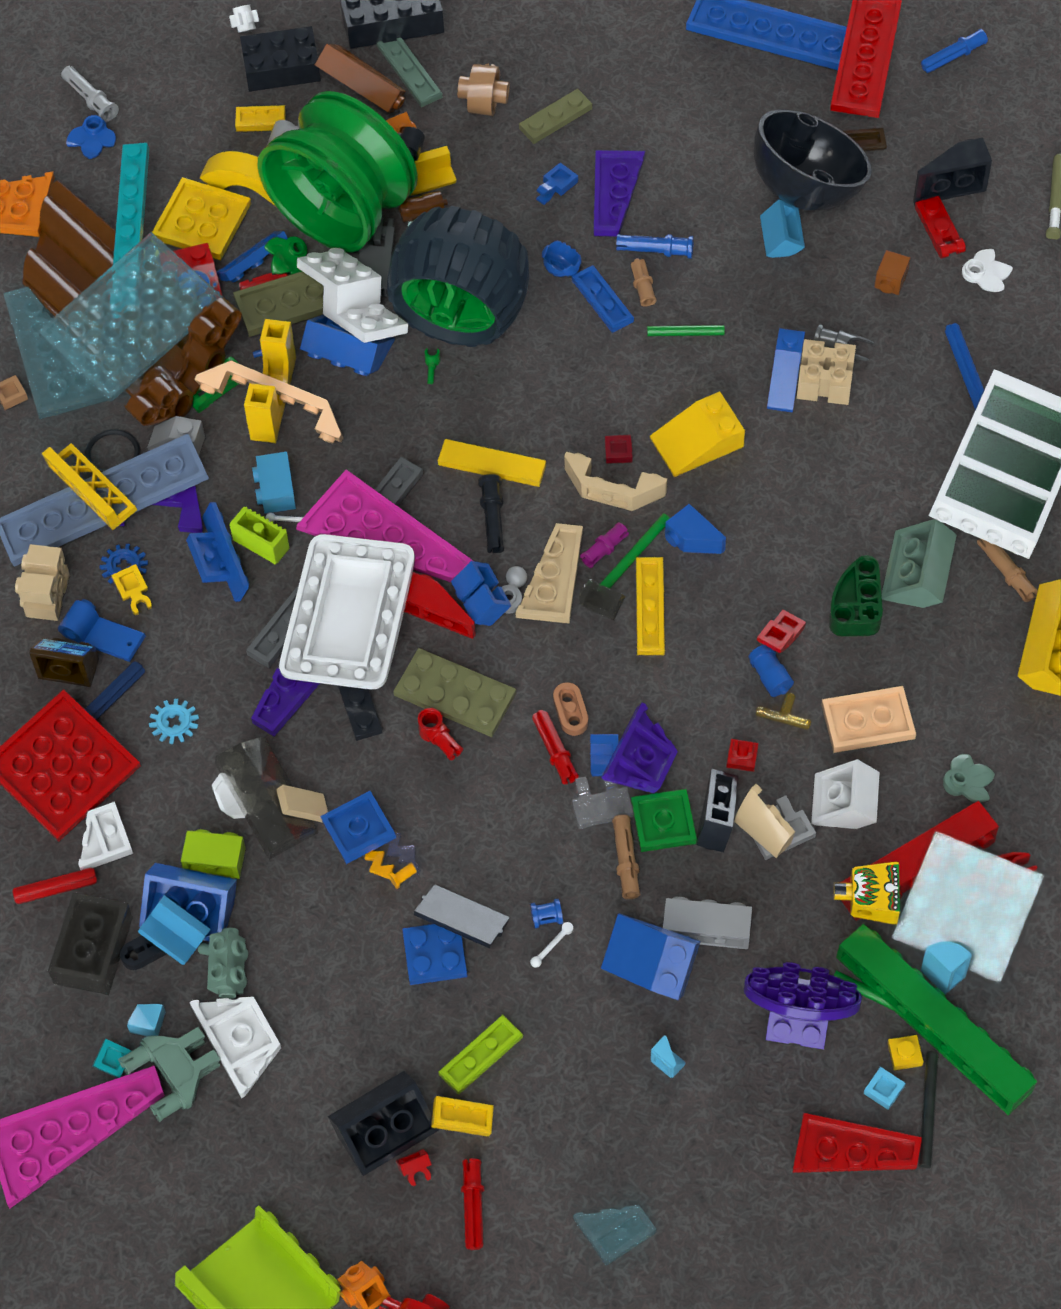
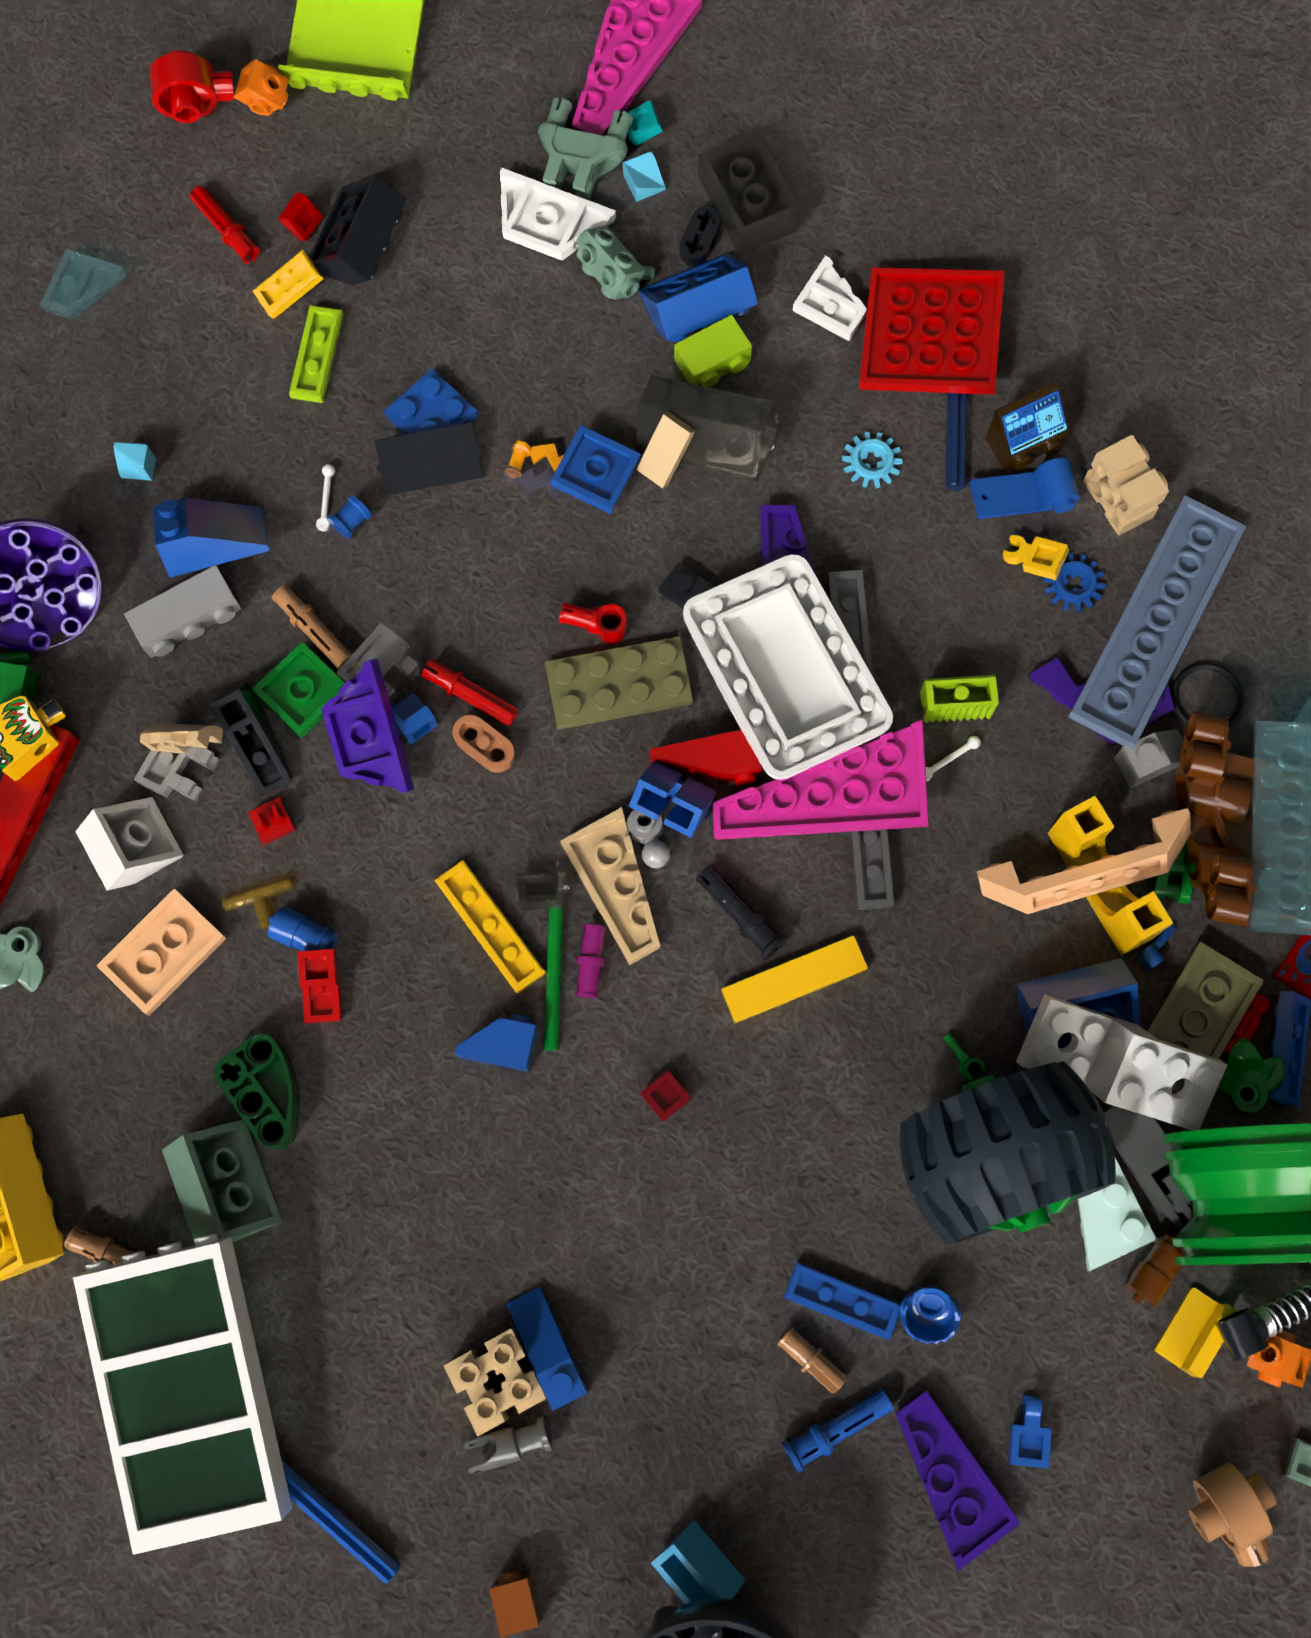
camera: 145 degrees right, 15 degrees up
(54, 886) = (835, 231): red axle -> none
(87, 490) = (1185, 602): yellow fence -> none
(174, 930) = (683, 251): dark azure panel -> none
(216, 555) = (990, 649): blue bracket -> none
(275, 482) = (1002, 777): dark azure brick -> none
(555, 116) = (1117, 1551): olive plate -> none
(649, 487) = (686, 1033): tan slope -> none
(691, 330) = (710, 1327): green bar -> none
(699, 435) = (587, 1179): yellow slope -> none

